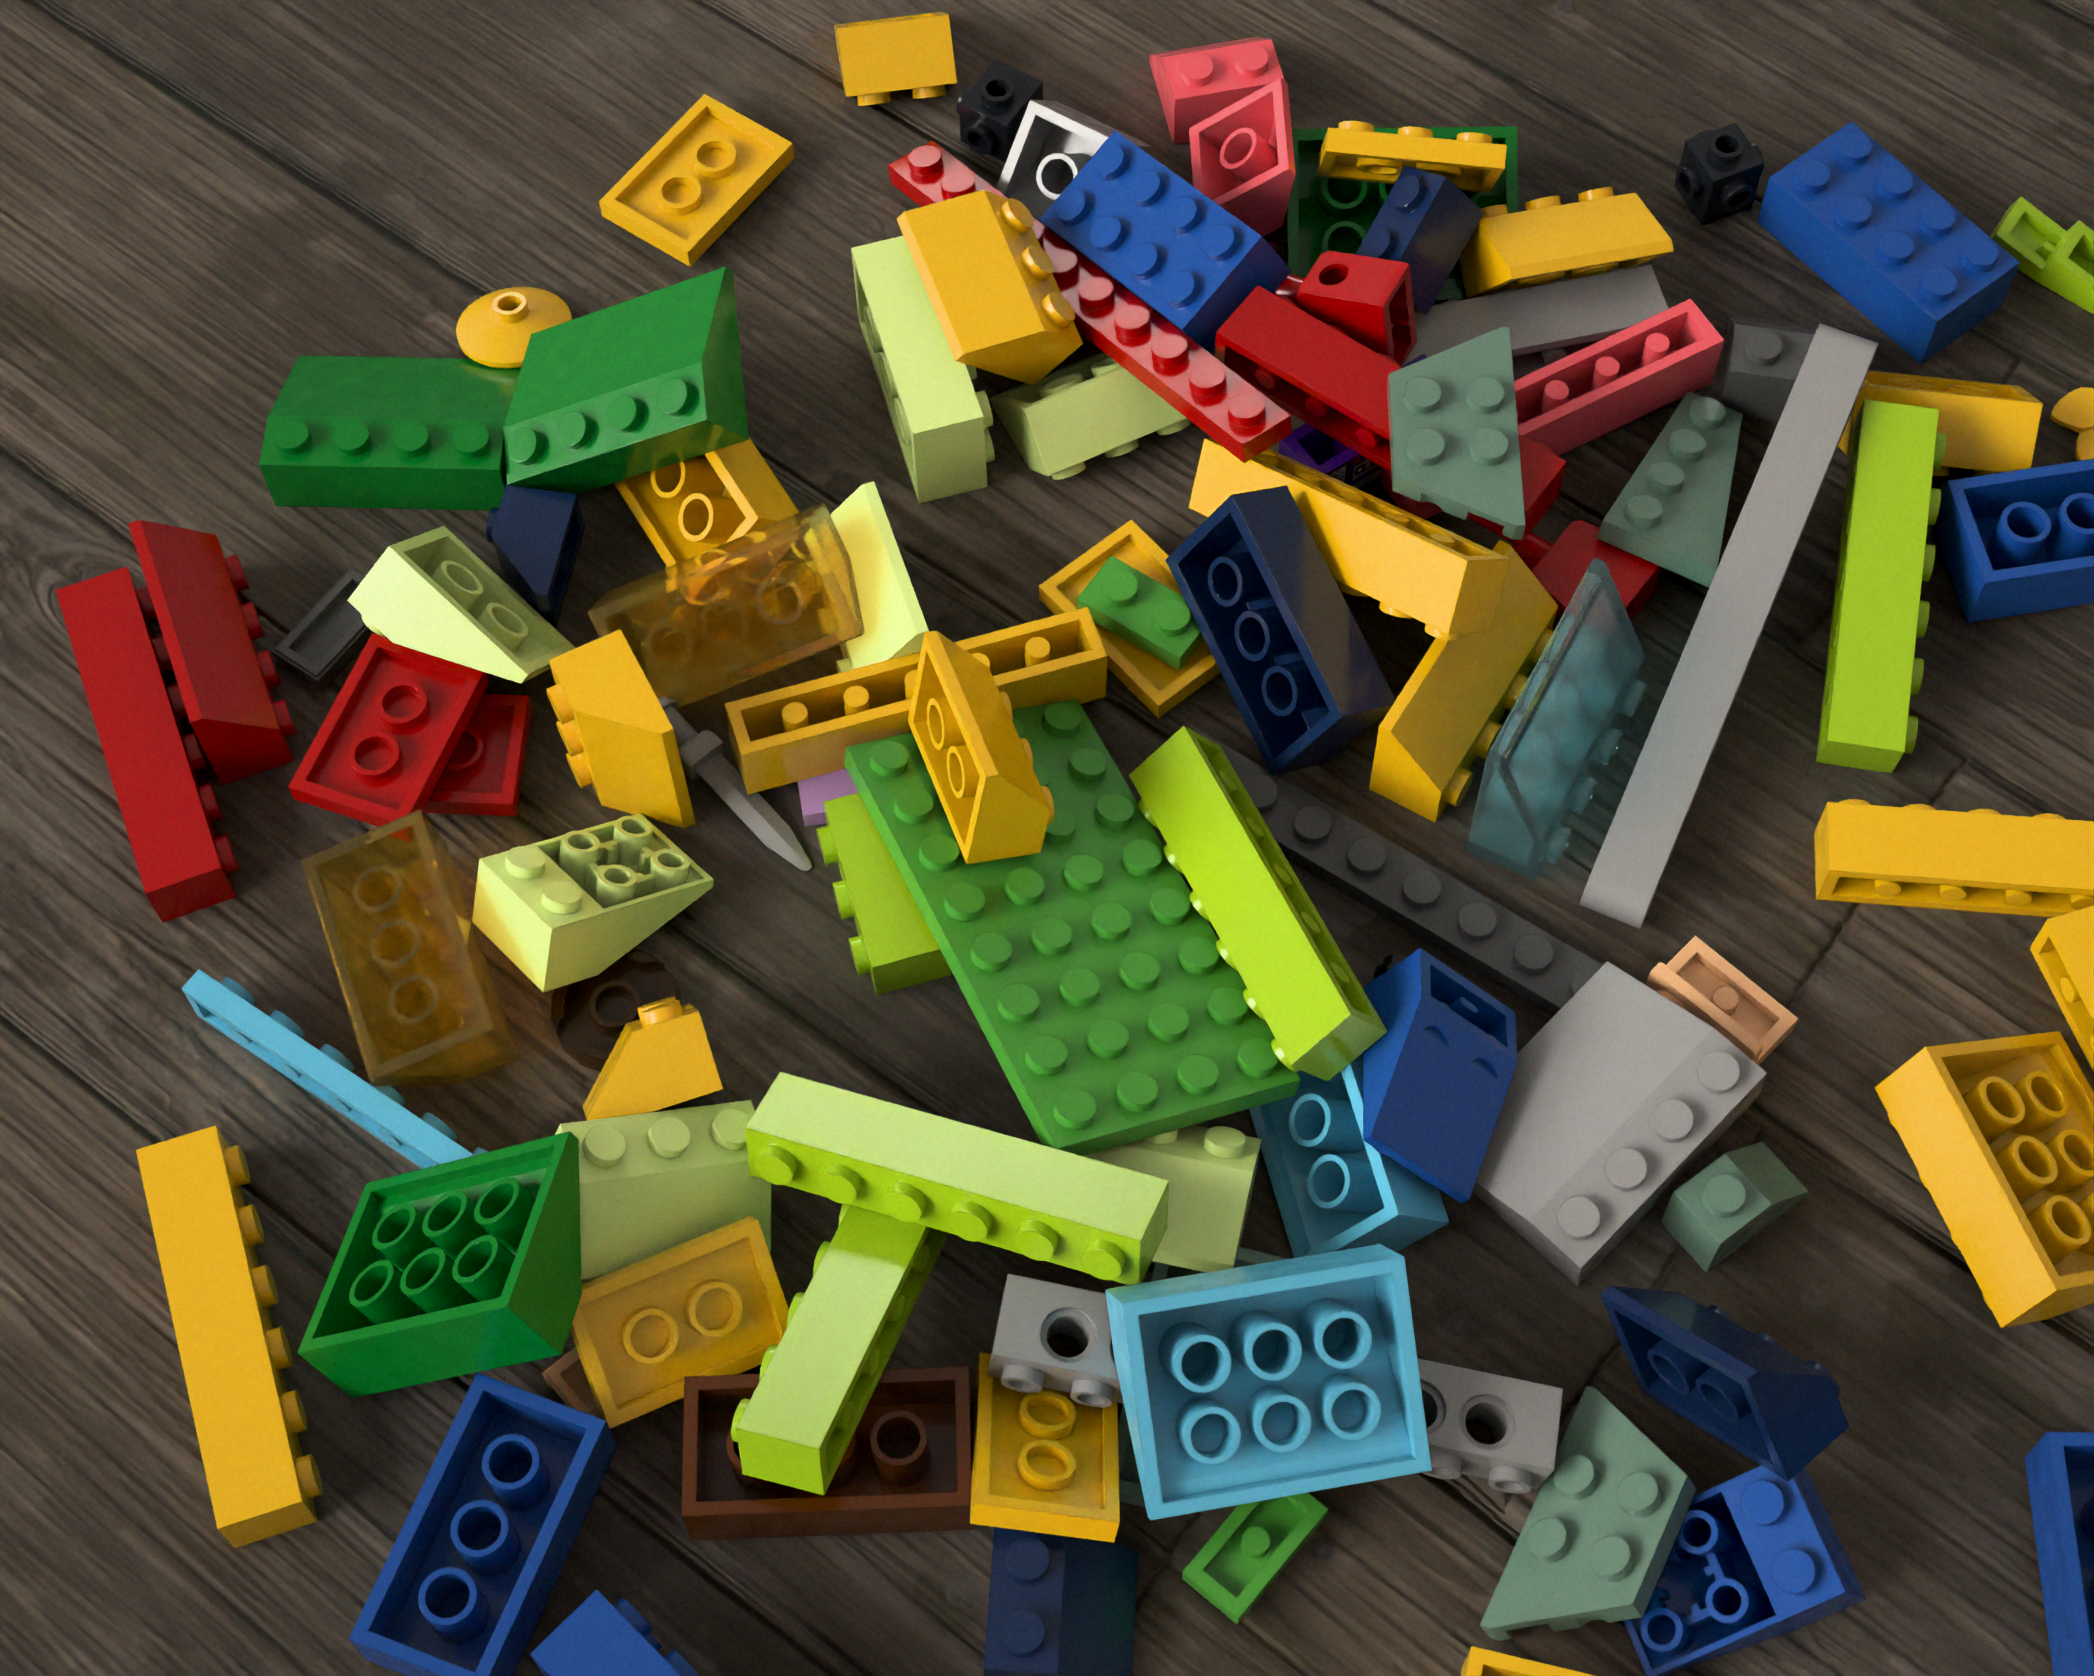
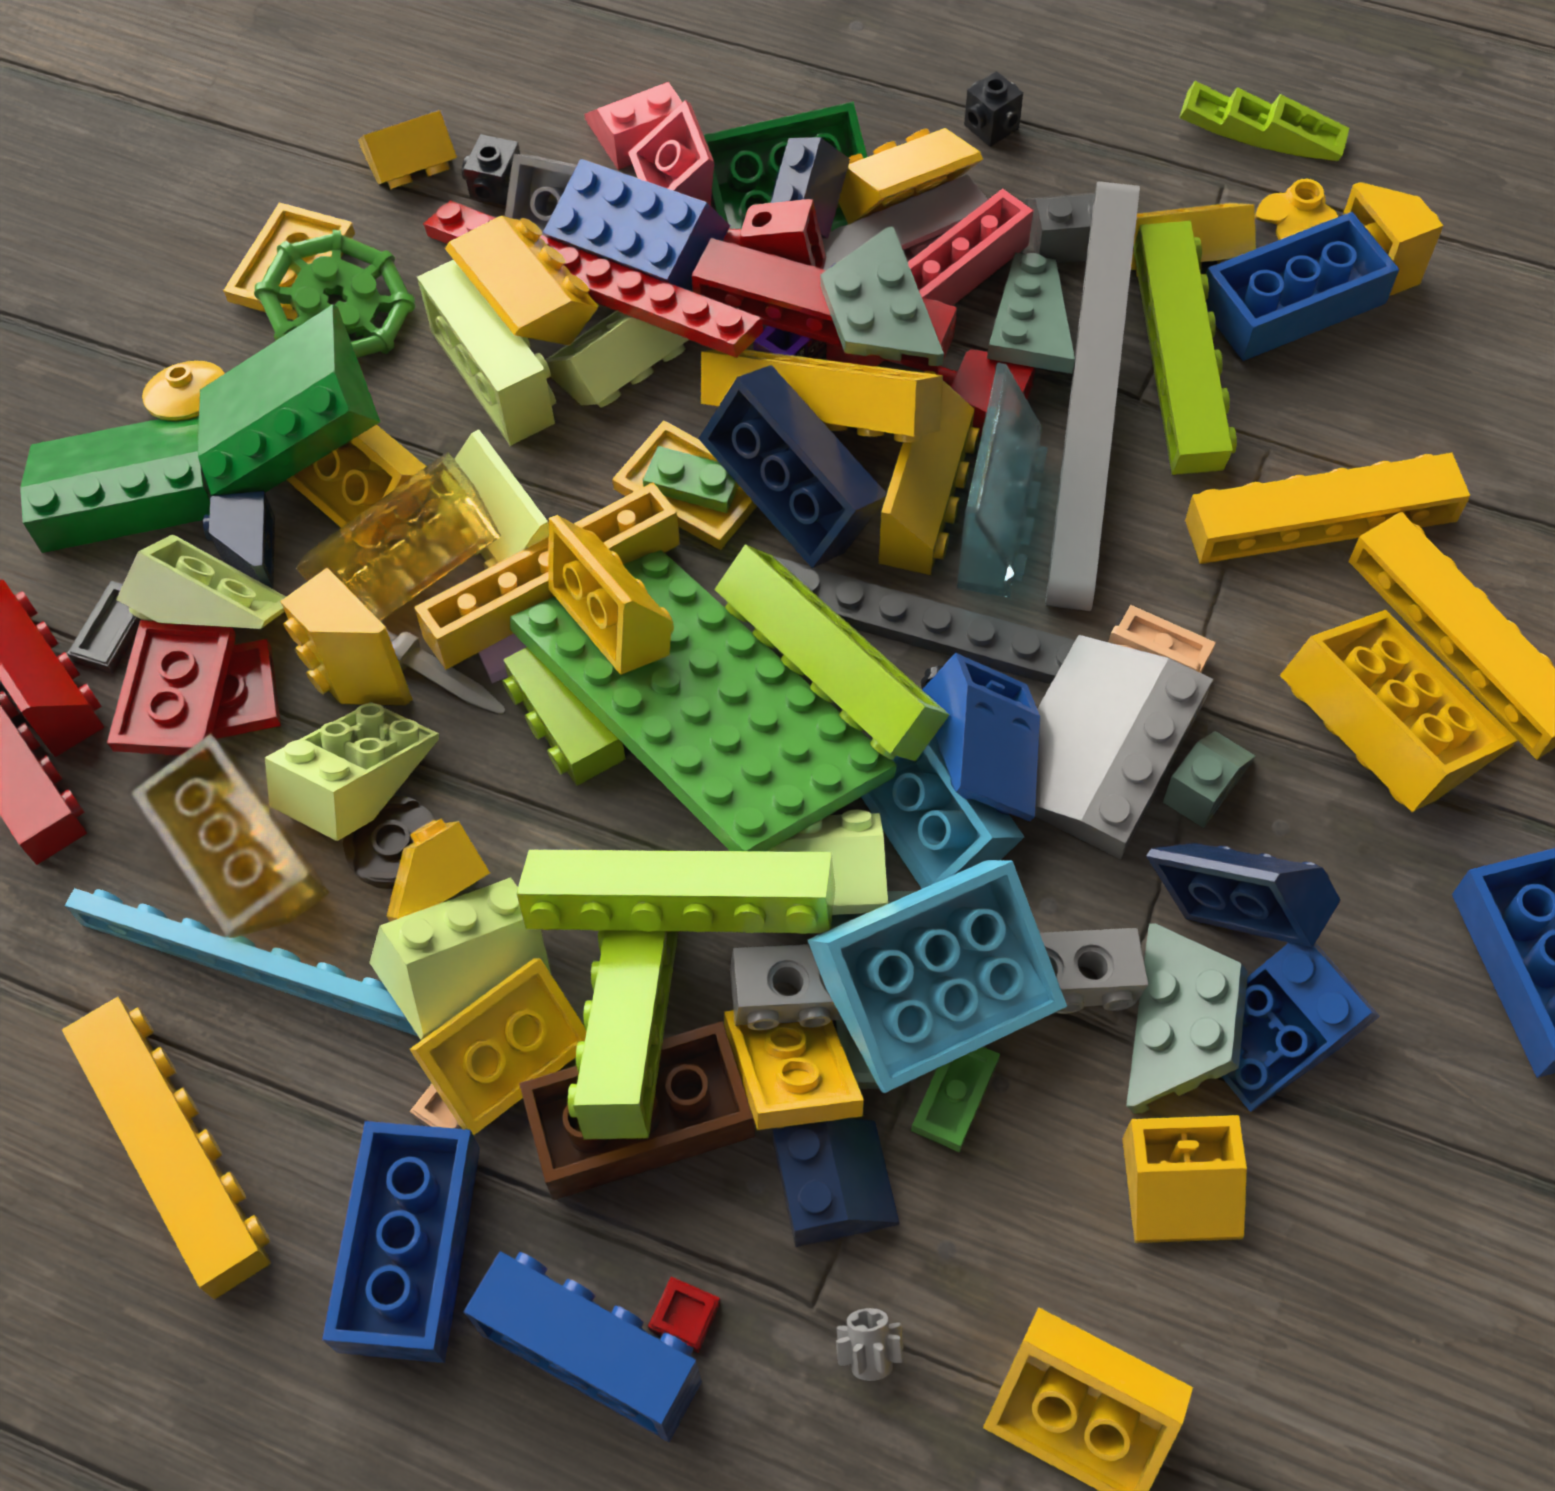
camera: 15 degrees left, 0 degrees up
(454, 1271) = (327, 1053): green slope -> none
(752, 217) = (339, 277): none -> bright green plate
(1364, 155) = (766, 138): yellow plate -> none
(1887, 242) = (1116, 128): blue brick -> none

